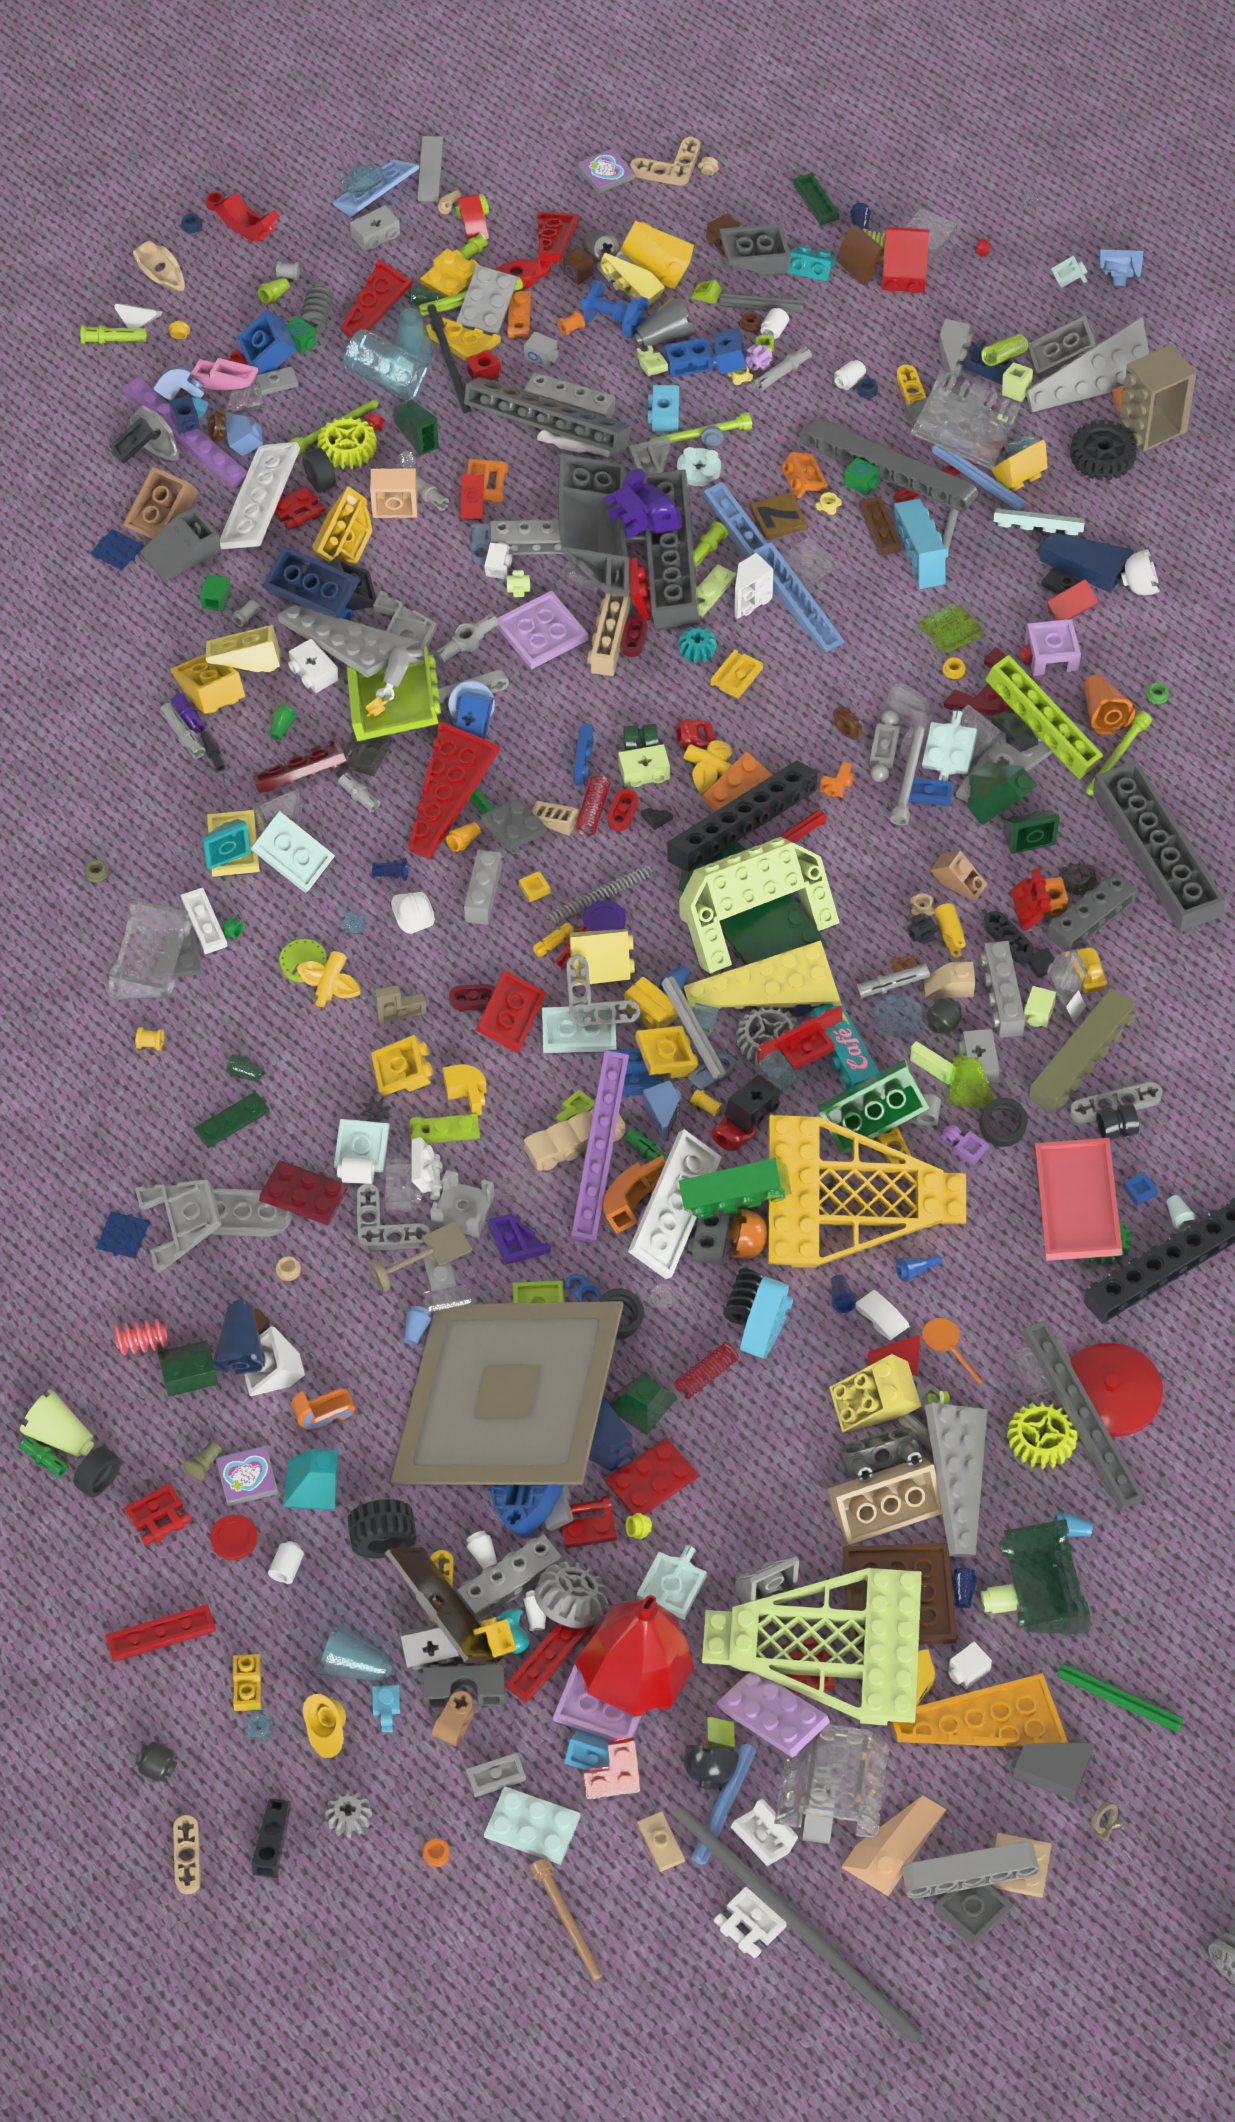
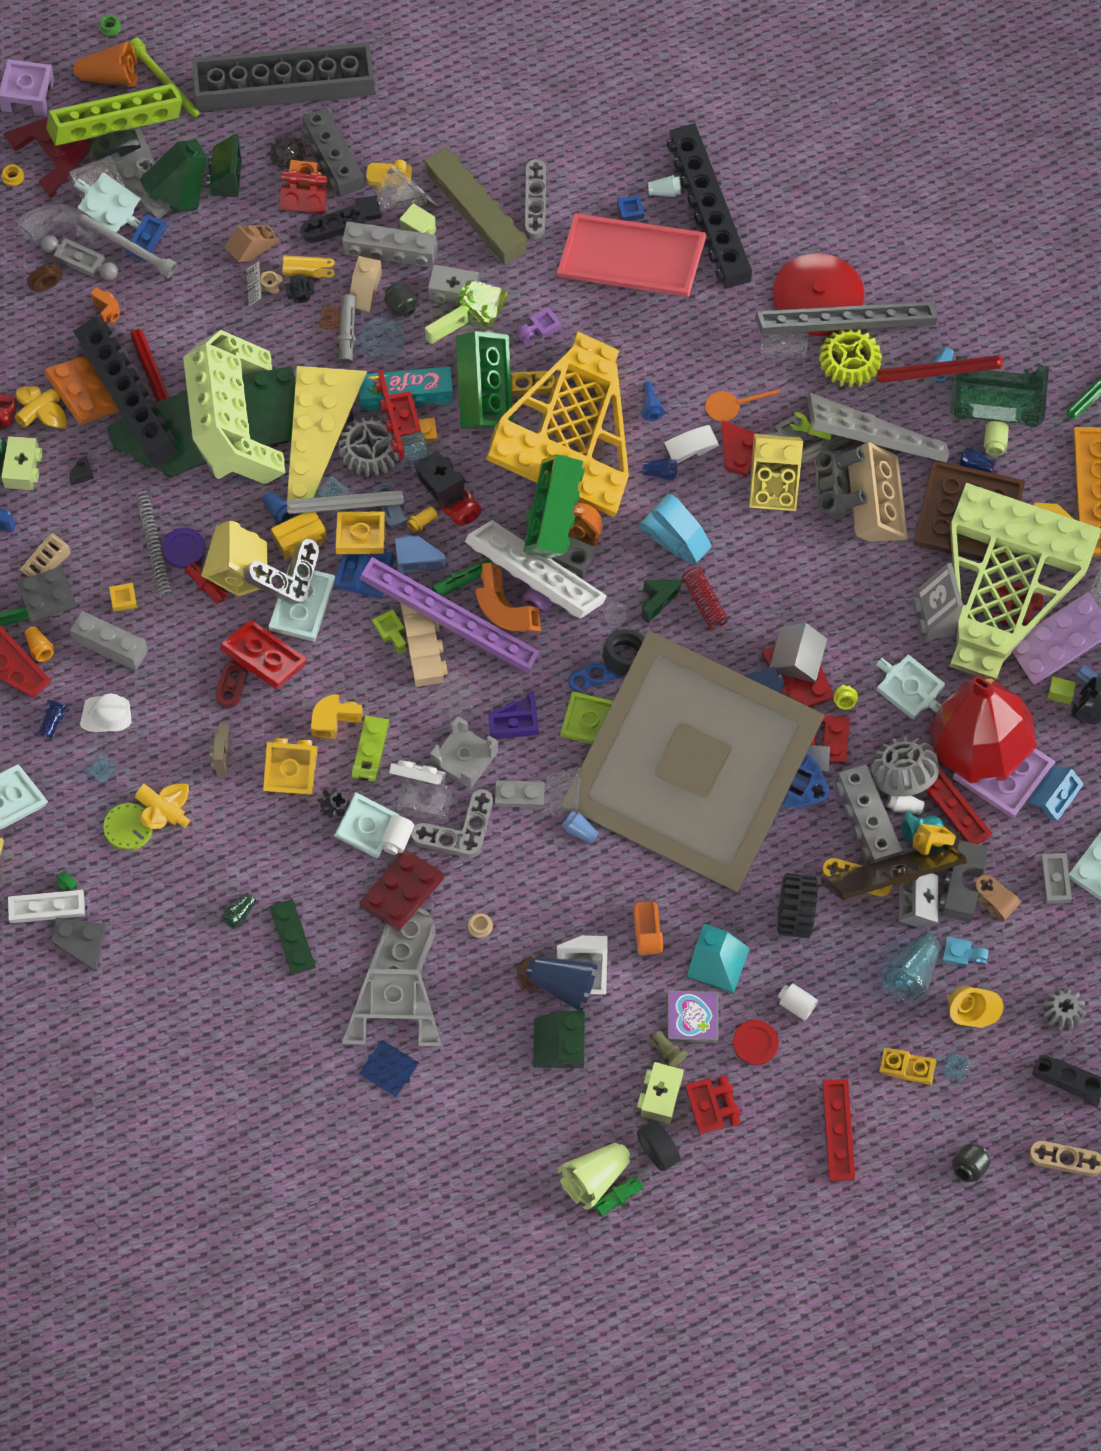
camera: 75 degrees left, 10 degrees up
(141, 1336) = (515, 1074): coral piece -> none
(145, 1472) = (661, 1107): none -> yellowish green brick
(148, 952) = (74, 966): clear windscreen -> none
(149, 1038) = (171, 989): yellow bush -> none
(444, 1245) = (505, 778): dark tan piece -> none
(482, 1549) = (832, 831): white cone -> none
(552, 940) = (189, 598): yellow axle -> none
(603, 798) = (45, 515): red piece -> none
(617, 1778) = (1086, 777): clear red plate -> none
(621, 811) = (64, 497): red plate -> none
(642, 1403) = (730, 649): dark green slope -> none
(668, 1468) = (799, 652): none -> light grey slope
(694, 1331) = (661, 594): none -> dark green slope
(742, 1296) = (641, 544): black piece -> none
(808, 1079) = (428, 428): none -> light orange plate
(913, 892) = (253, 283): none -> white sticker
(969, 1666) = (1052, 479): white brick -> none
(1009, 1105) = (536, 275): black tyre -> none
(1026, 653) = (21, 111): red plate -> none
(1045, 1509) = (940, 368): none -> red axle
(1116, 1122) = (560, 202): black wheel -> none

